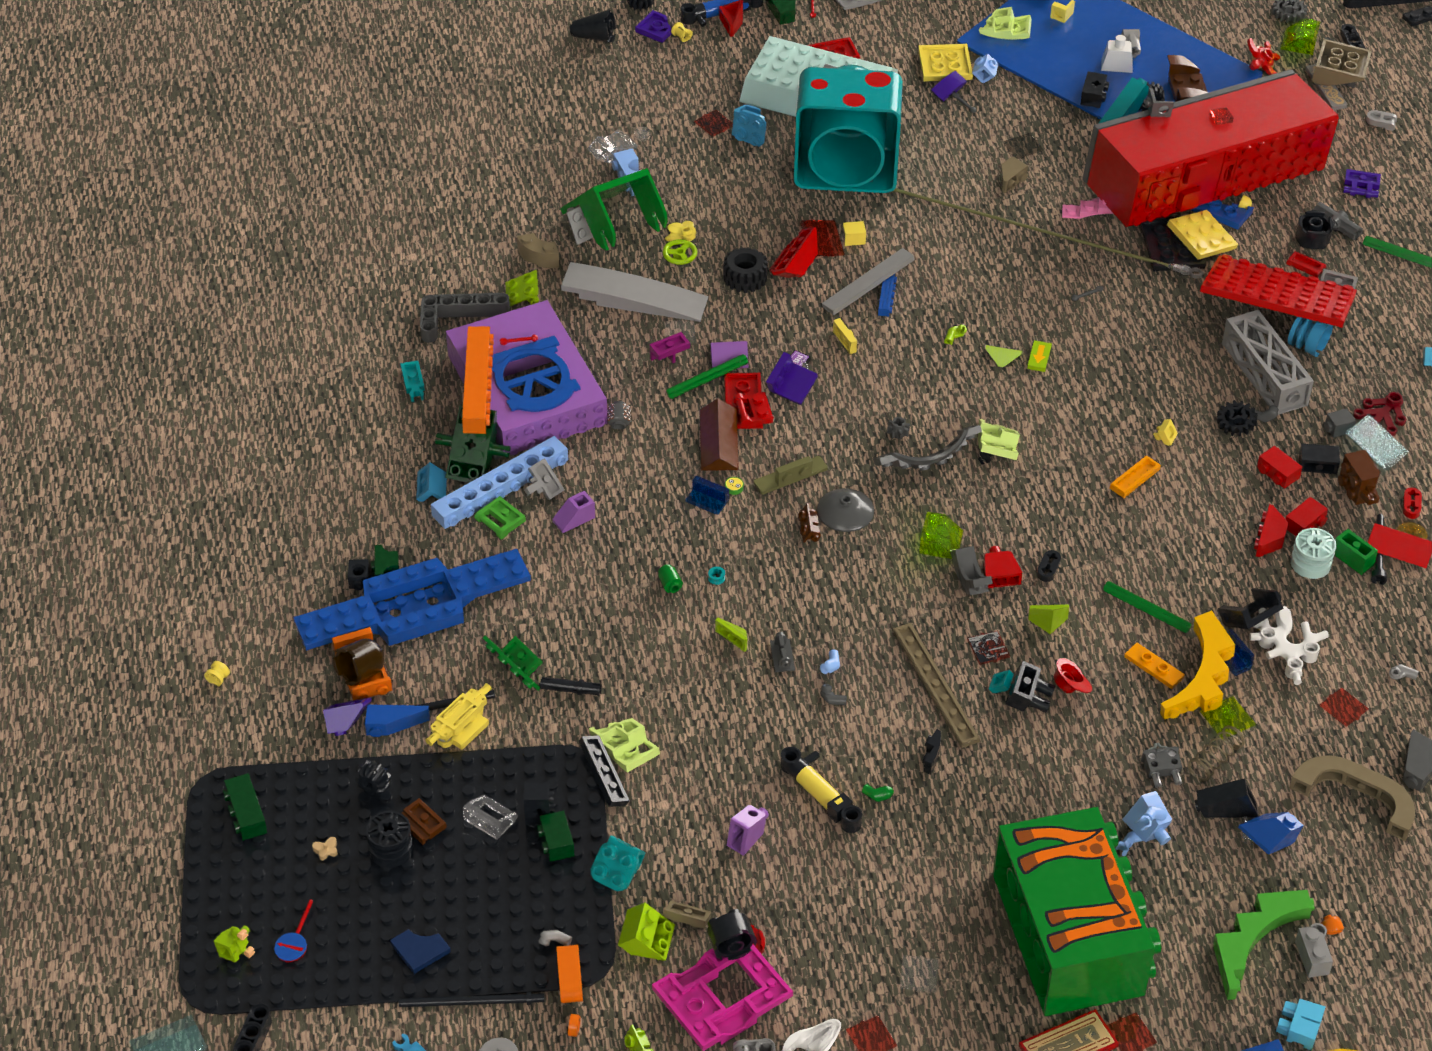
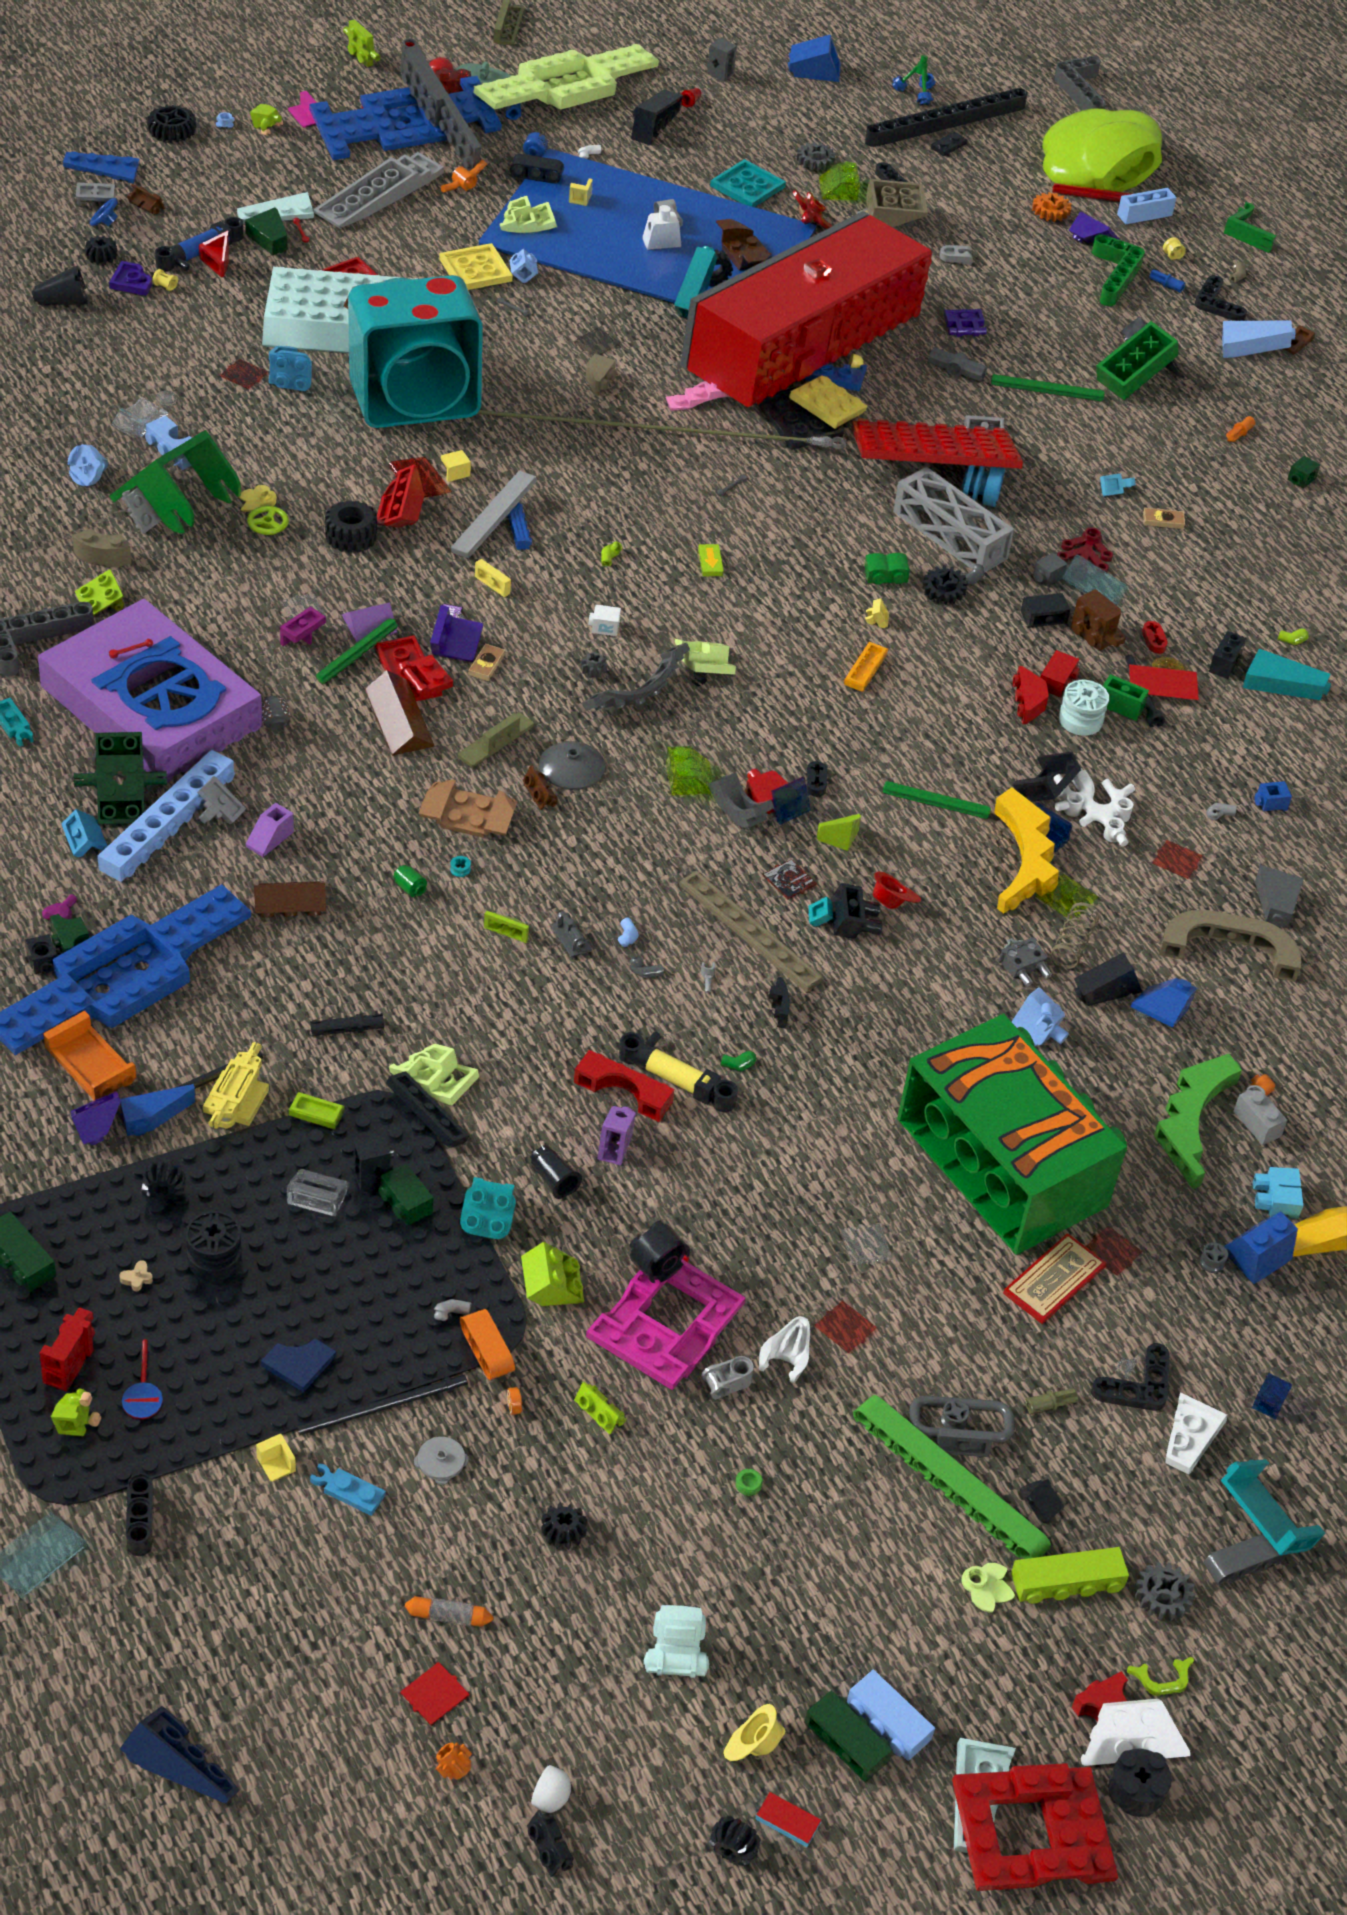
camera: 25 degrees left, 0 degrees up
(248, 892) = (67, 1355): none -> red hips
(358, 661) = (88, 1052): dark brown cylinder -> none
(371, 1019) = (276, 1457): none -> light yellow panel
(389, 542) = (62, 909): none -> magenta rock
(423, 821) = (249, 1215): reddish brown plate -> none
(478, 380) = (107, 701): orange brick -> none
(504, 513) = (186, 849): bright green plate -> none
(516, 750) = (316, 1110): none -> lime tile
(519, 656) = (275, 1006): green bracket -> none
(554, 179) = (86, 465): none -> light blue tile
(567, 571) = (290, 898): none -> reddish brown slope
(632, 292) = (231, 574): light grey slope -> none
(685, 849) = (555, 1172): none -> black plant
(687, 914) = (584, 1244): dark tan plate -> none
(708, 495) = (412, 779): clear blue panel -> none
(734, 485) = (437, 764): tile -> none
(740, 530) = (466, 810): none -> medium nougat piece
(754, 773) = (599, 1072): none -> red arch
(811, 407) = (486, 662): none -> tile
(883, 713) = (707, 973): none -> light grey hand
(924, 391) = (605, 620): none -> white brick
(948, 85) = (491, 291): dark purple slope -> none
(1003, 356) = (671, 567): lime slope -> none
(1015, 580) = (791, 800): none -> piece
(1094, 89) = (651, 270): black brick -> none
(1153, 105) = (746, 268): dark grey bracket -> none
(1154, 665) = (970, 859): light orange plate -> none
(1191, 393) = (886, 568): none -> green brick
(1217, 25) = (748, 183): none -> teal plate
(1279, 467) = (1009, 626): red brick -> none
(1306, 264) = (944, 414): red tile -> none
(1314, 230) = (940, 377): black brick -> none

